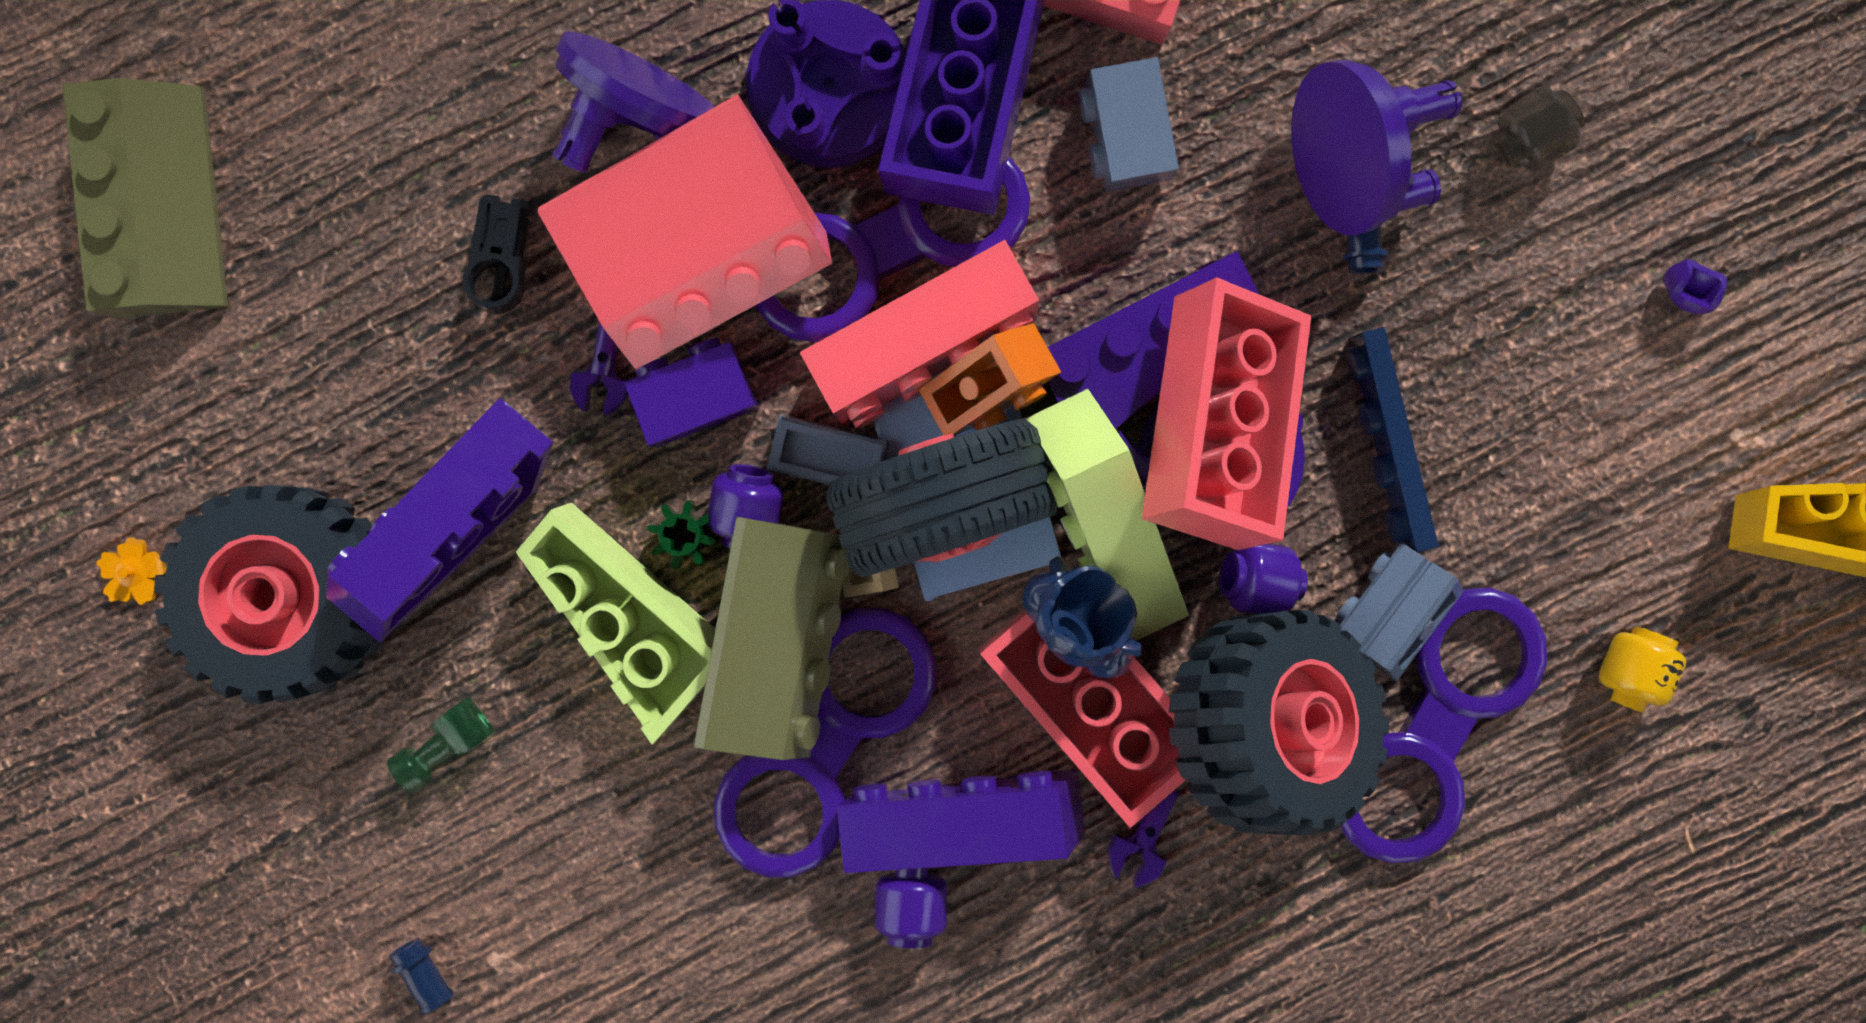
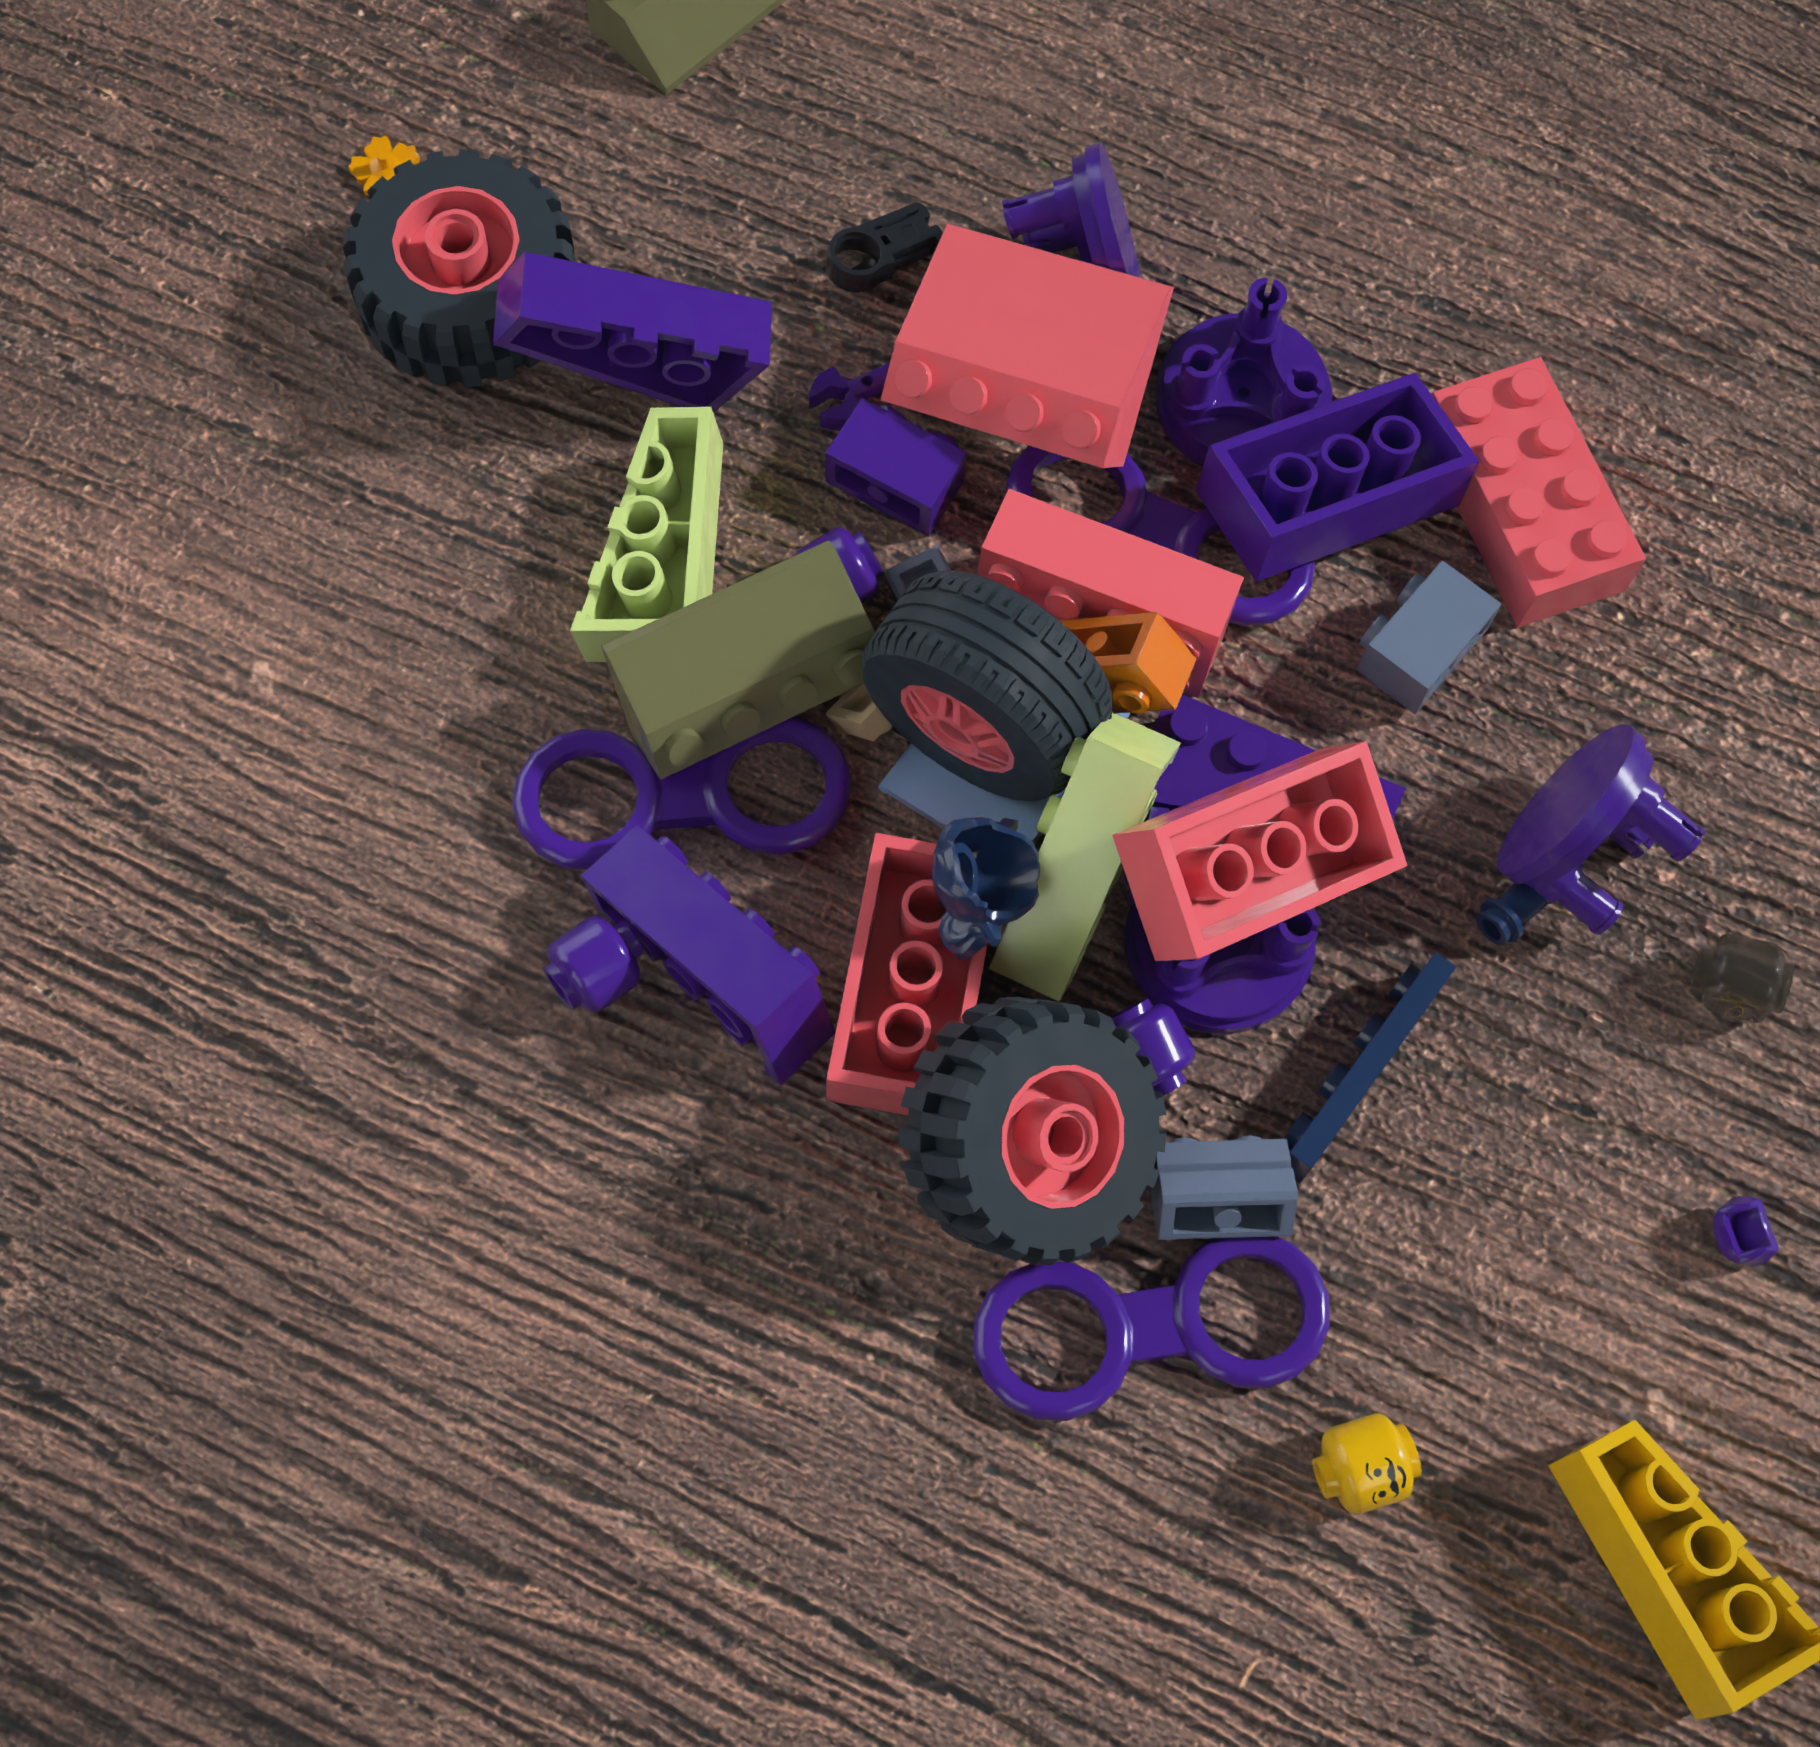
camera: 45 degrees right, 20 degrees down
(420, 975) = (203, 610): dark blue pin -> none
(455, 733) = (453, 487): clear green leg -> none
(671, 544) = (768, 538): dark green gear -> none
(1145, 839) = (821, 1137): dark purple bar -> none

